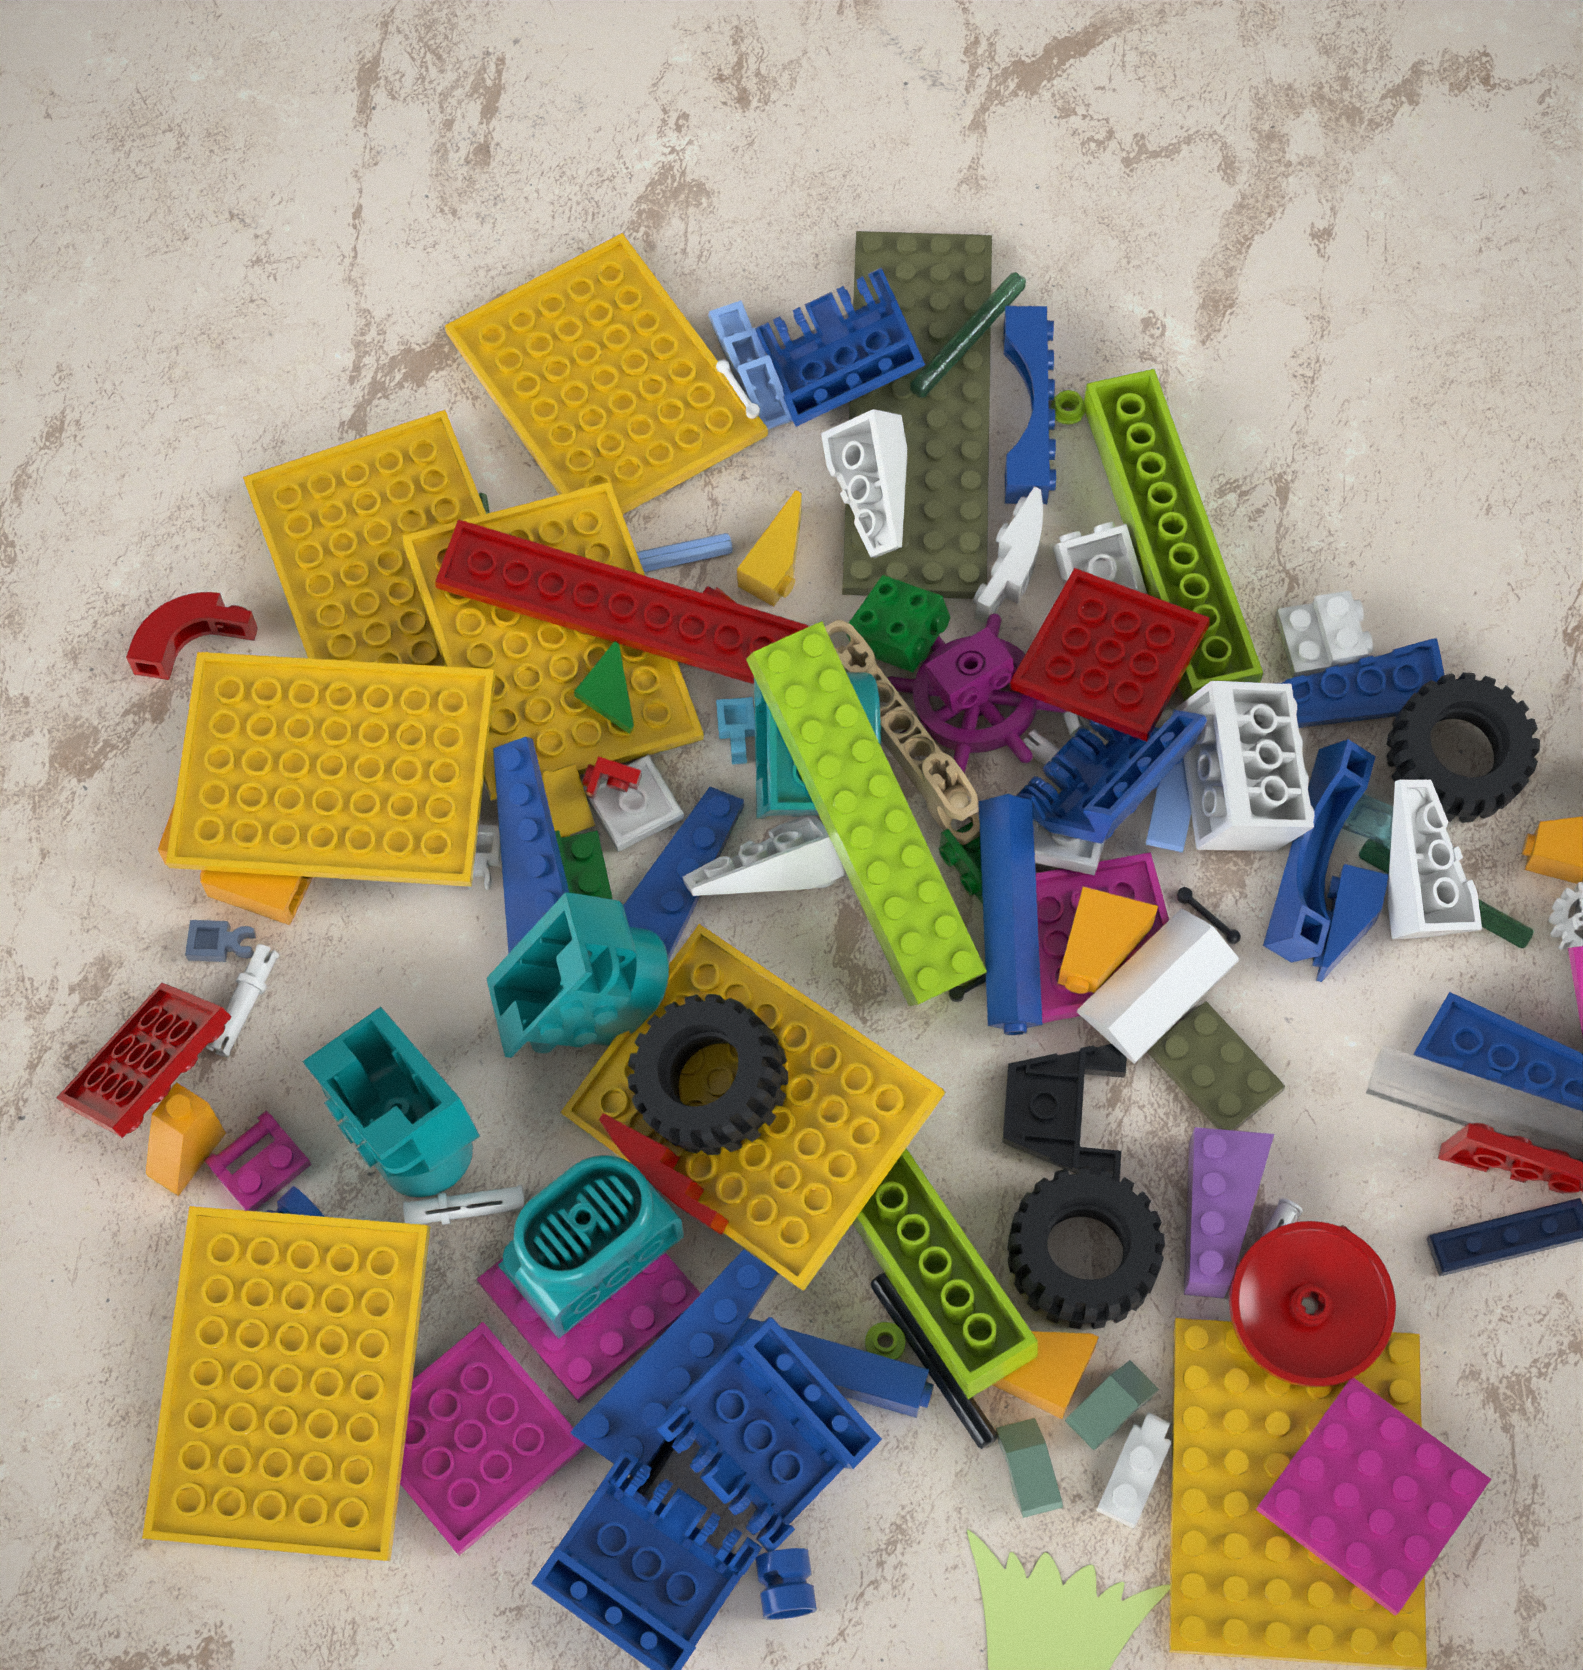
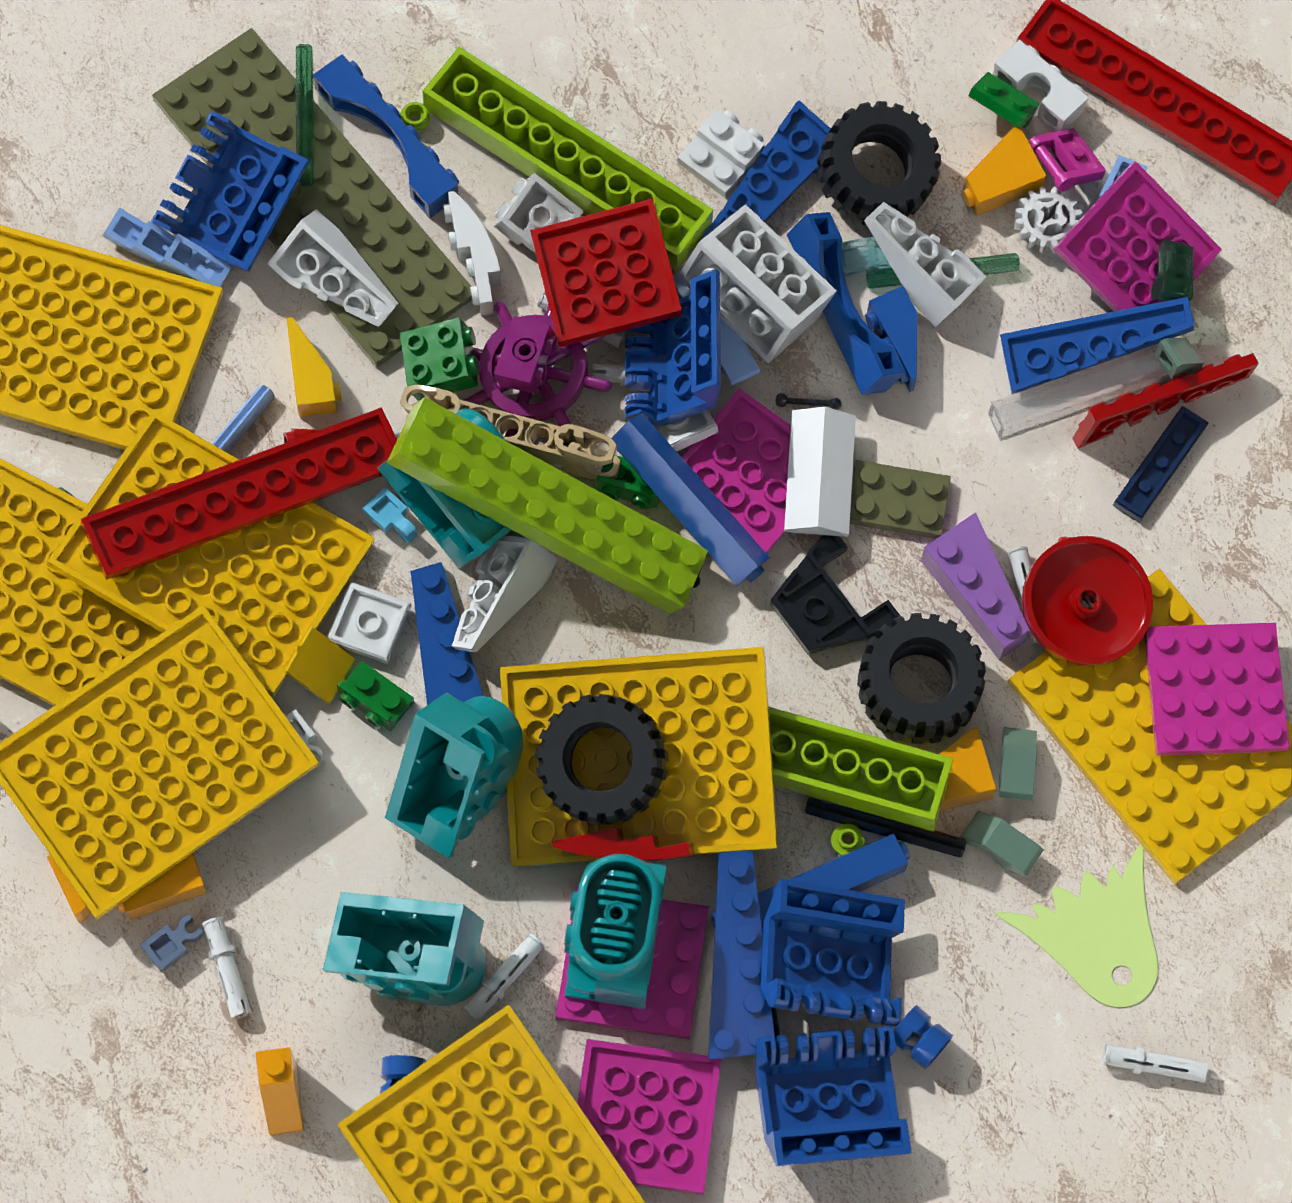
camera: 45 degrees left, 5 degrees up
(144, 1059) = (208, 1058): red plate -> none
(266, 1171) = (350, 1064): dark pink plate -> none
(528, 841) = (344, 717): blue wing -> none
(606, 689) = (286, 559): green tile -> none
(617, 775) = (349, 612): red bracket -> none
(752, 409) = (200, 282): white hinge -> none
(1102, 938) = (760, 470): light orange slope -> none
(1136, 1471) = (1064, 792): white hinge -> none

